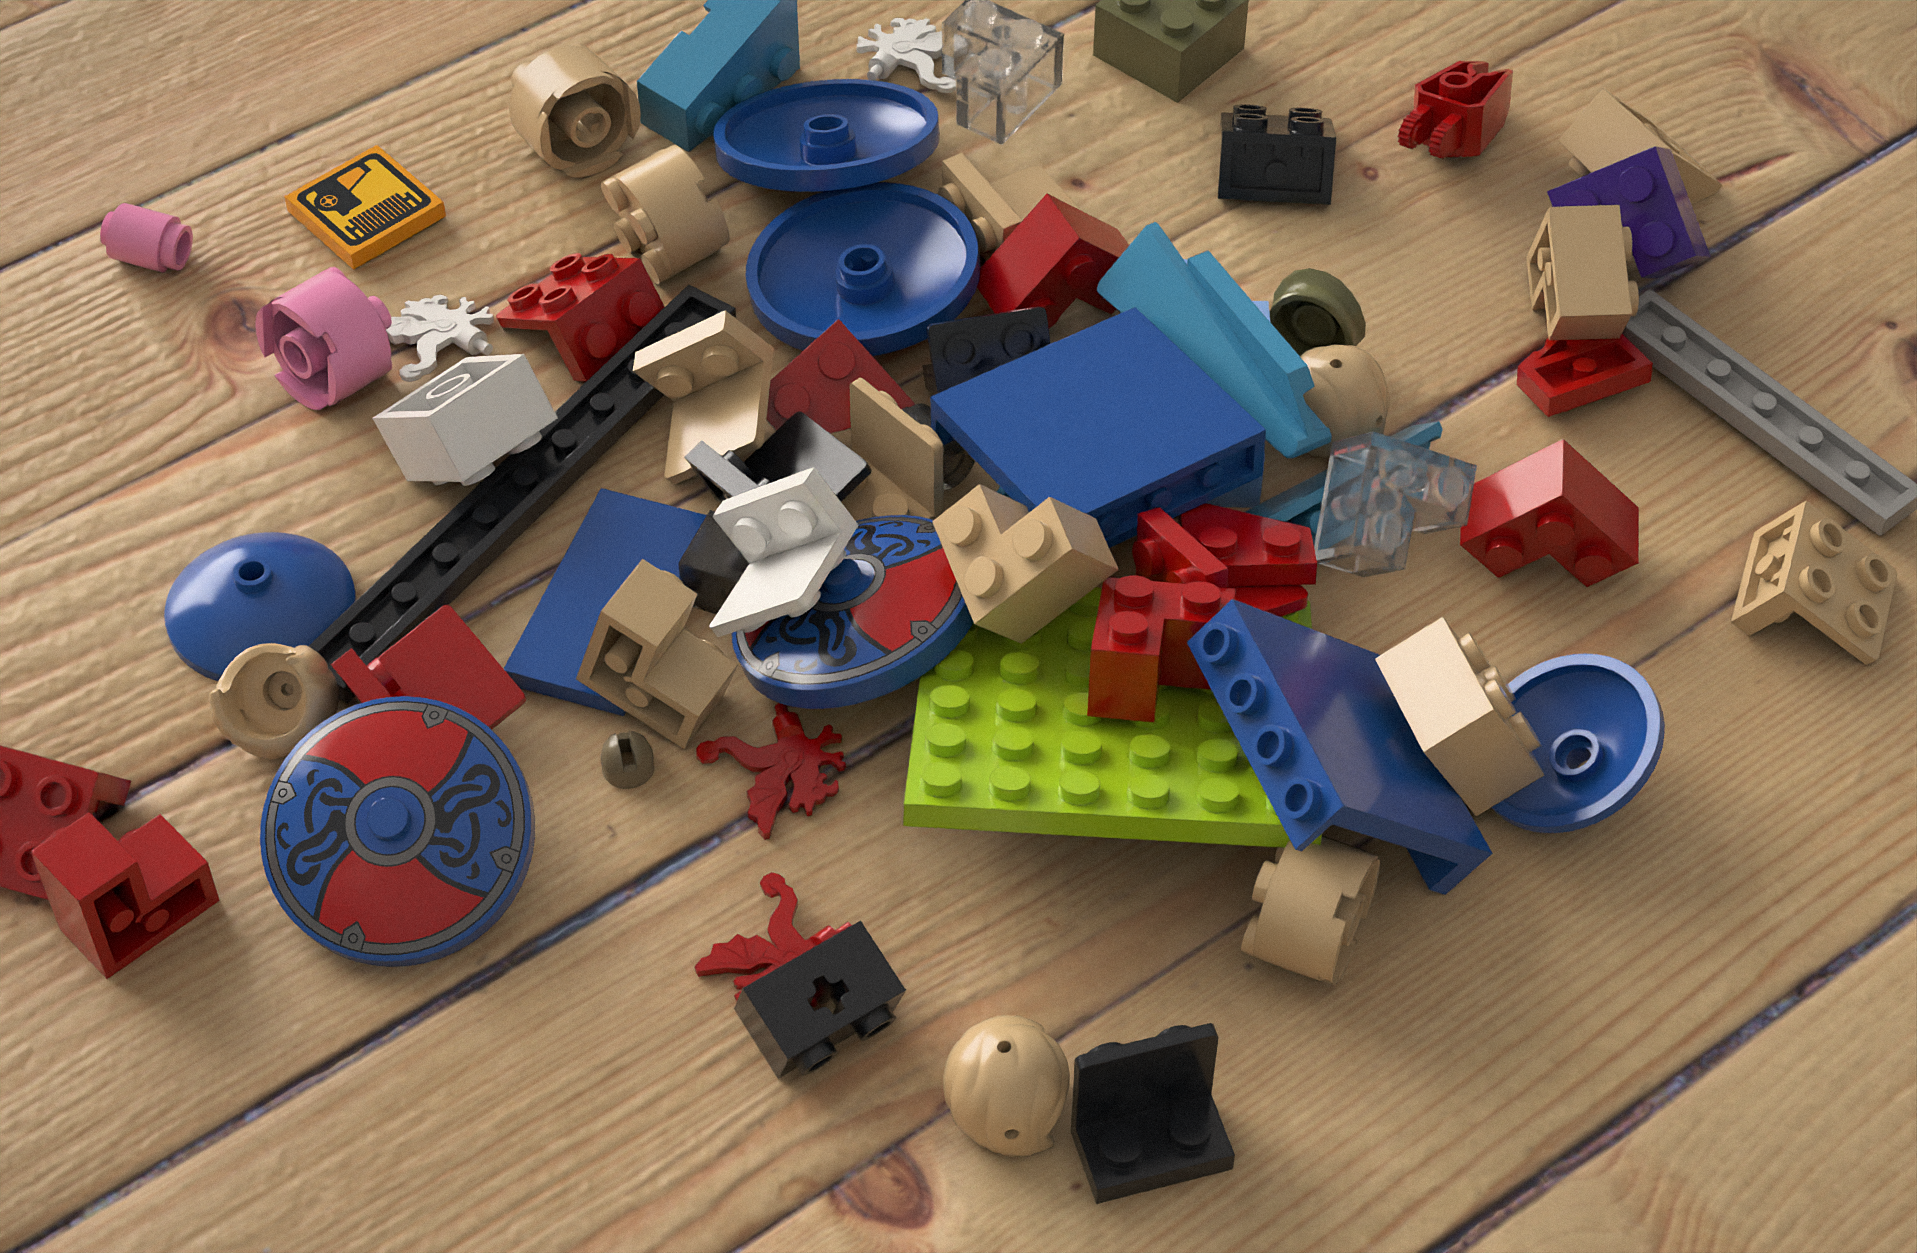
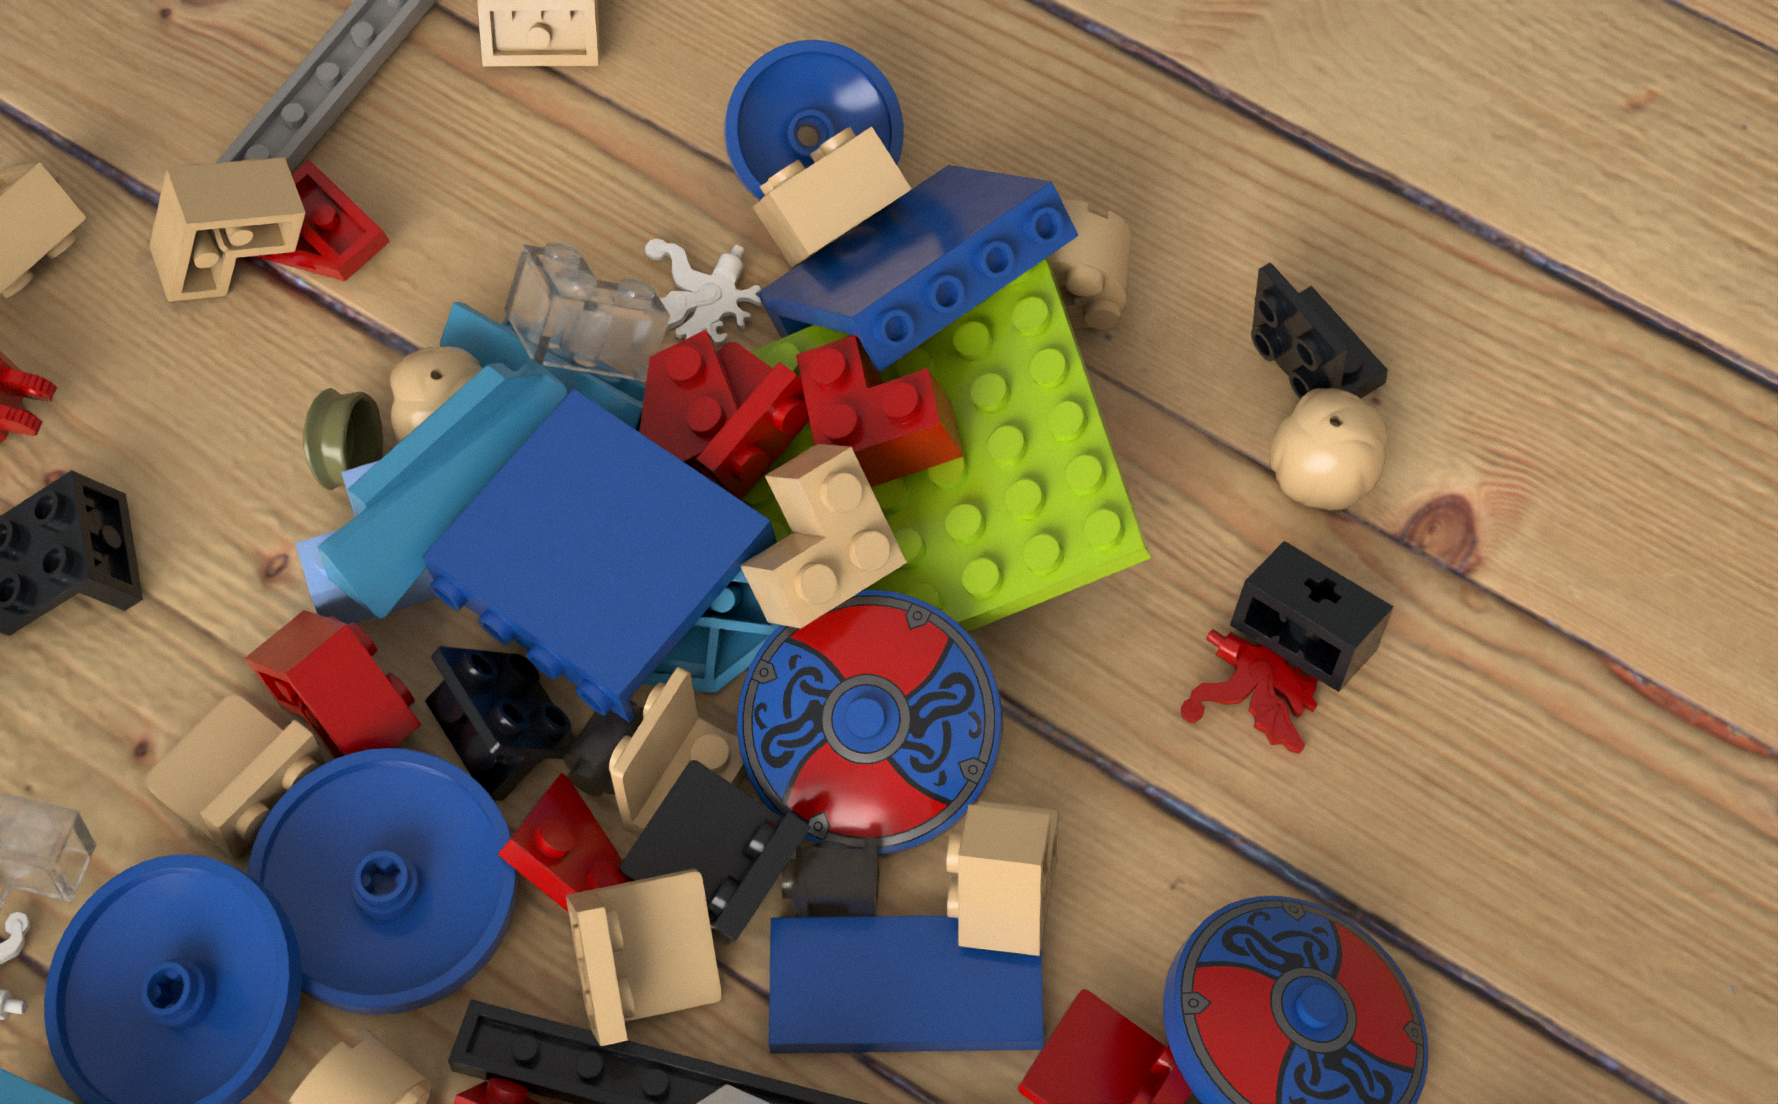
camera: 105 degrees left, 10 degrees up
(629, 775) = (1104, 901): dark tan hinge -> none
(791, 758) = (1045, 755): red piece -> none
(792, 541) = (876, 773): white bracket -> none
(1404, 615) = (705, 294): none -> white piece
(1555, 508) = (548, 190): red brick -> none
(1650, 204) = (102, 201): dark purple brick -> none

